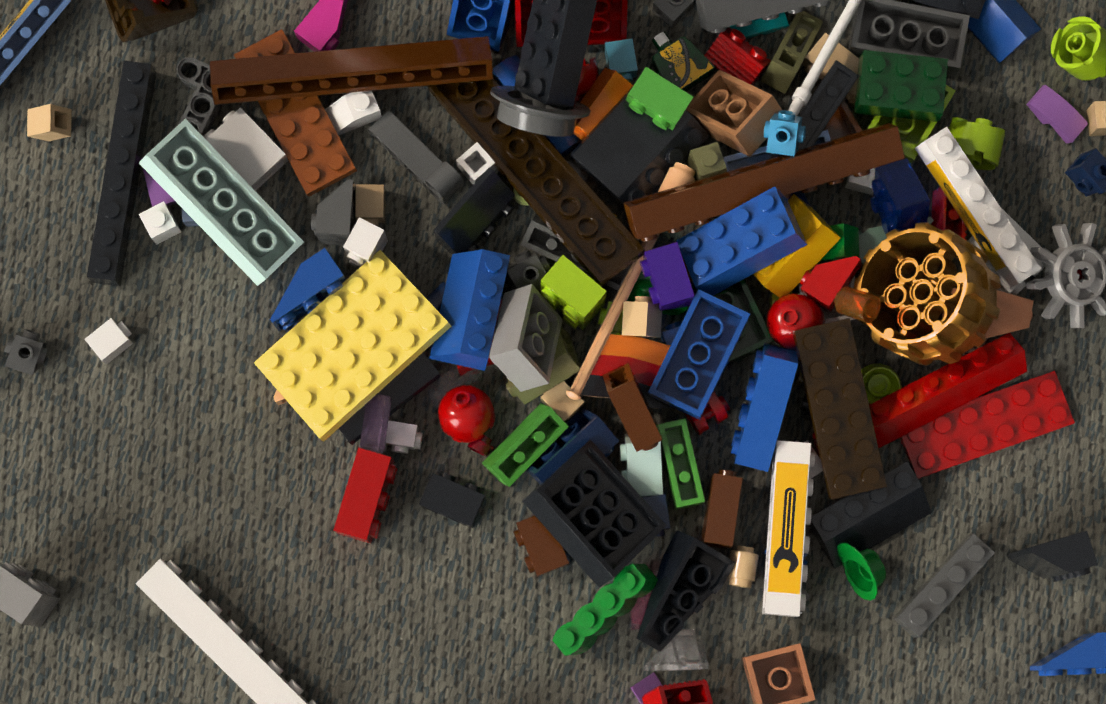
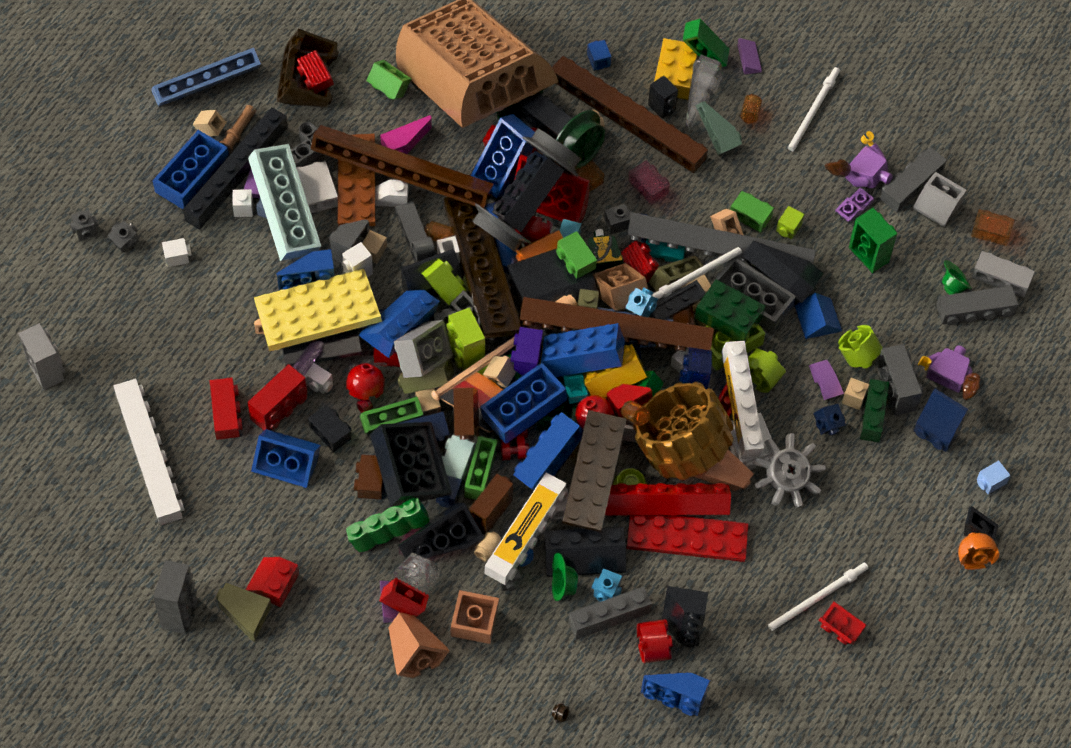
camera: 25 degrees right, 20 degrees down
(63, 207) = (190, 169): none -> blue brick
(90, 122) = (234, 134): none -> medium nougat pin
(299, 538) = (225, 408): none -> red brick
(416, 570) = (285, 458): none -> blue slope
(446, 139) = (437, 231): none -> clear orange brick
(498, 219) = (443, 280): none -> lime brick
(752, 297) = (575, 387): none -> teal slope
(930, 544) = (607, 585): none -> dark azure brick
(1021, 601) = (654, 641): none -> red brick

